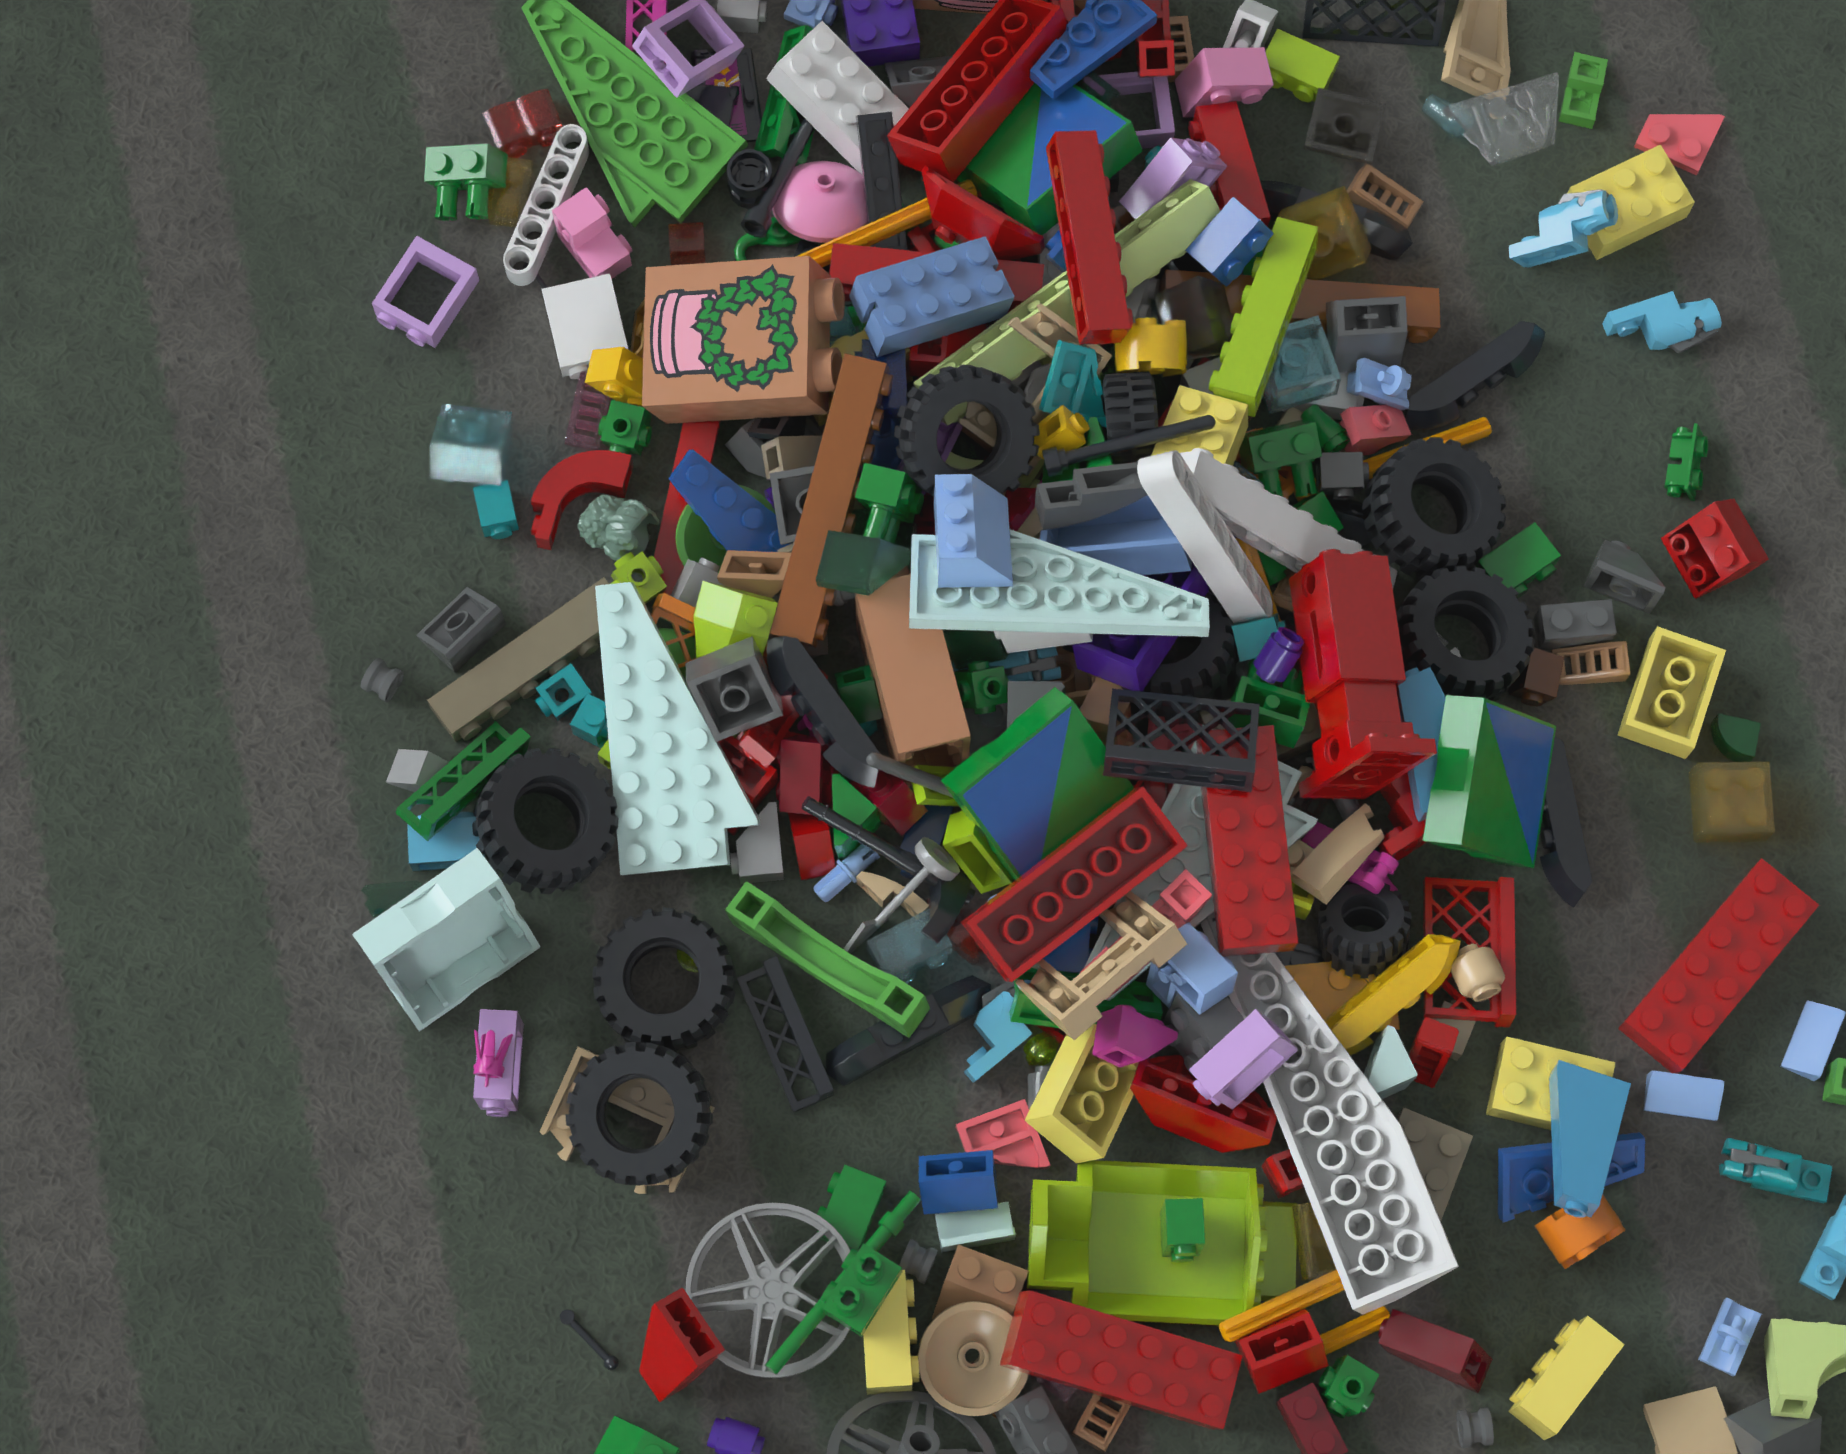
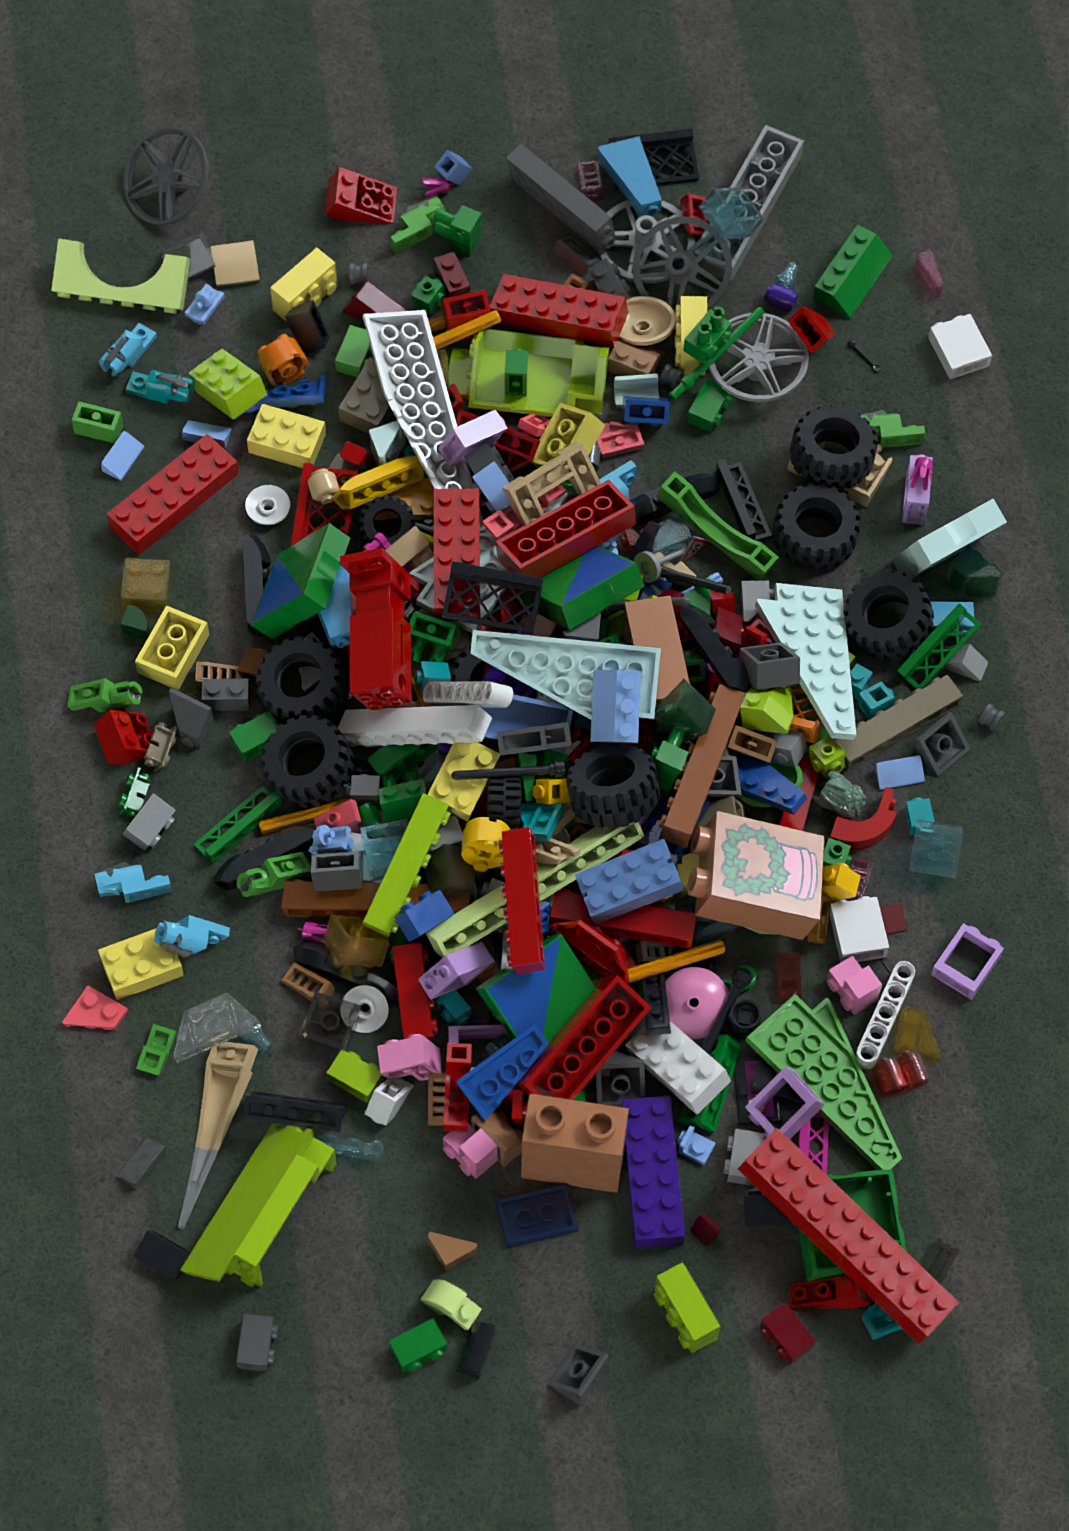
camera: 175 degrees left, 10 degrees down
(424, 1363) = (960, 346): none -> white brick
(464, 168) = (941, 1035): green brick -> none
(526, 583) = (899, 772): none -> light blue slope
(537, 353) = (893, 918): none -> dark red slope
(550, 1190) = (890, 430): none -> bright green plate
(1129, 1037) = (533, 458): dark pink slope -> none
(1137, 1135) = (534, 424): none -> coral wing
(1278, 655) = (424, 652): dark purple brick -> none
(1291, 161) = (377, 1015): none -> white dish
(1391, 267) = (311, 929): none -> dark pink piece
(1456, 341) = (273, 874): none -> bright green plate
(1462, 1285) = (353, 352): none -> bright green brick
(1517, 414) = (240, 828): none -> green fence
(1546, 1295) = (307, 326): none -> black brick
(1574, 950) = (267, 496): none -> white dish
(1584, 1132) = (274, 392): dark azure slope -> none
(1655, 411) = (149, 821): none -> light grey brick
(1658, 520) = (165, 739): none -> dark tan hinge
(1667, 1170) = (228, 383): none -> lime brick
(1761, 604) = (104, 695): none -> bright green plate

